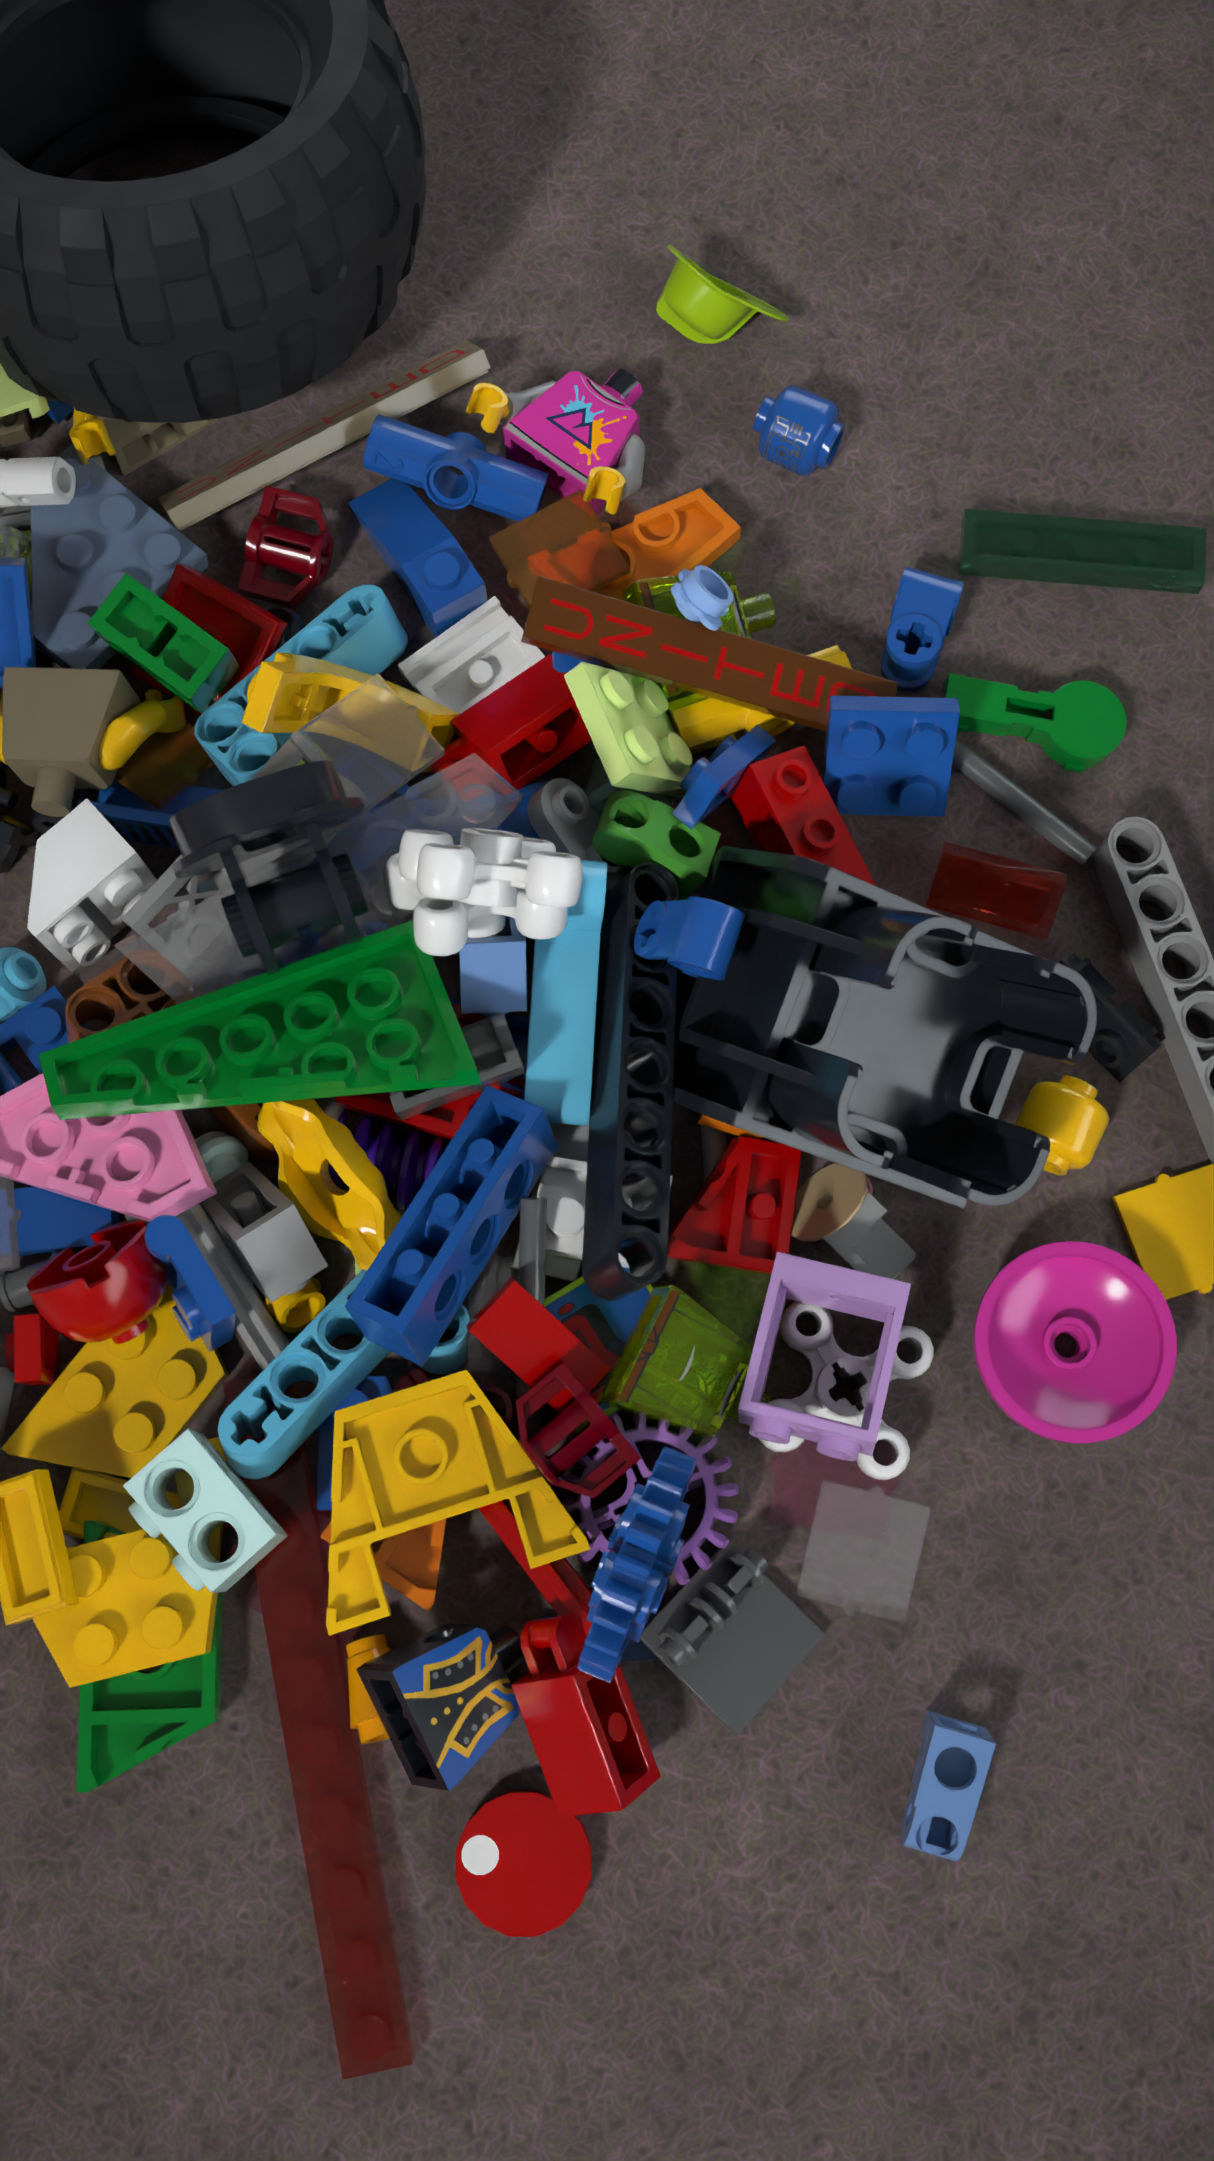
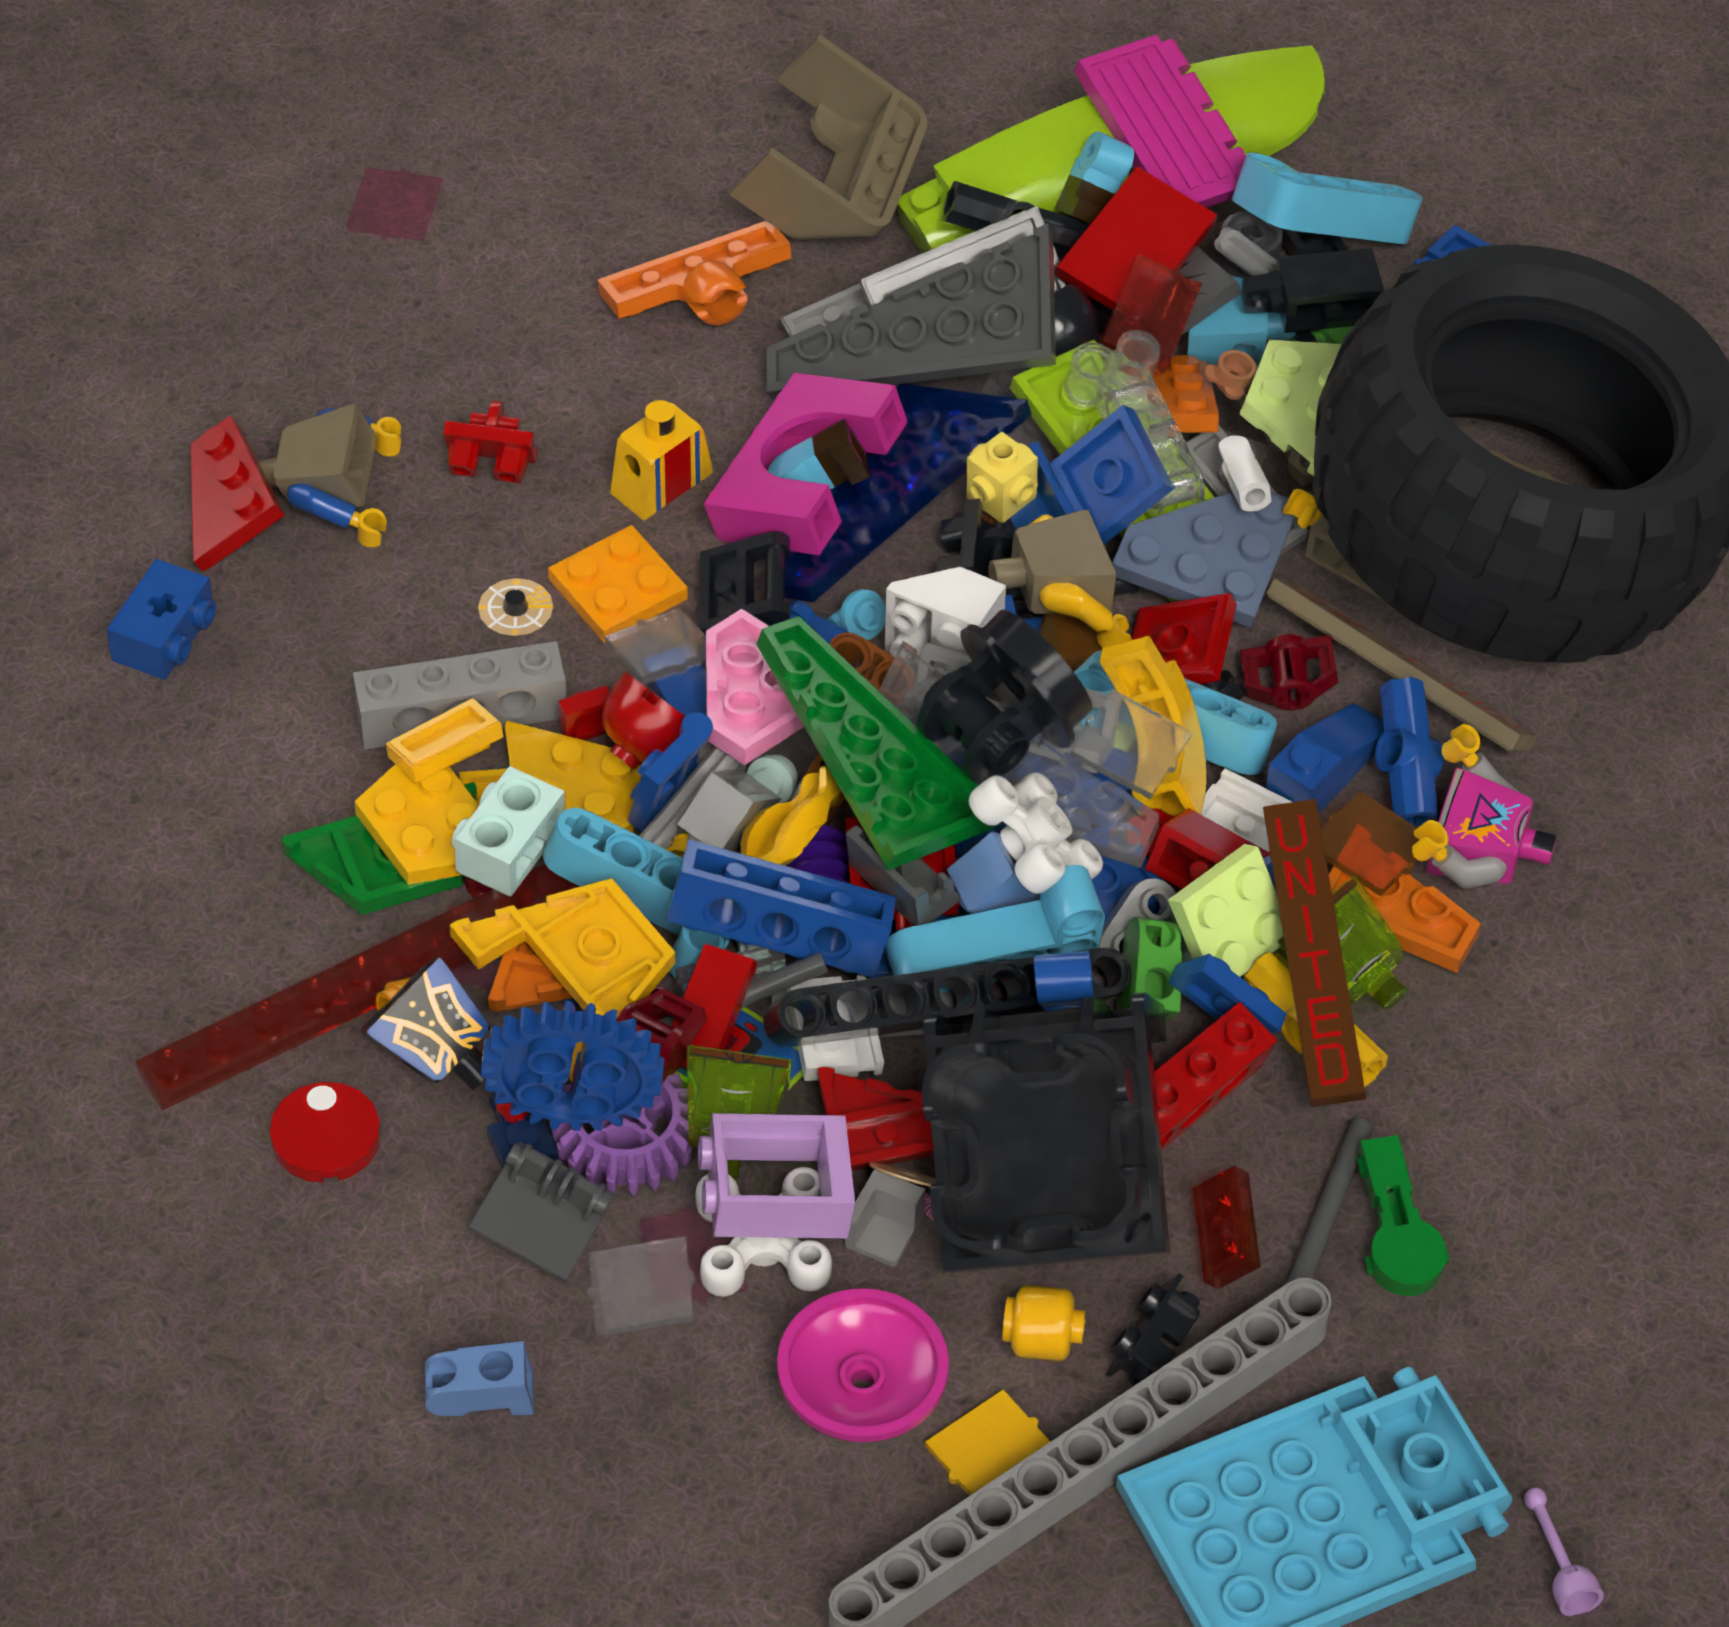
camera: 65 degrees right, 25 degrees down
(164, 643) = (1155, 594): green brick -> none
(489, 868) = (1043, 799): white gear -> none
(580, 1724) = (438, 1120): red brick -> none
(702, 596) = (1359, 920): light blue plate -> none
(706, 306) = (1657, 882): lime piece -> none
(799, 430) = (1572, 981): blue head -> none
(890, 754) = (1299, 1106): blue plate -> none
(919, 624) = (1441, 1109): blue piece -> none
(1082, 551) = (1567, 1216): clear green plate -> none

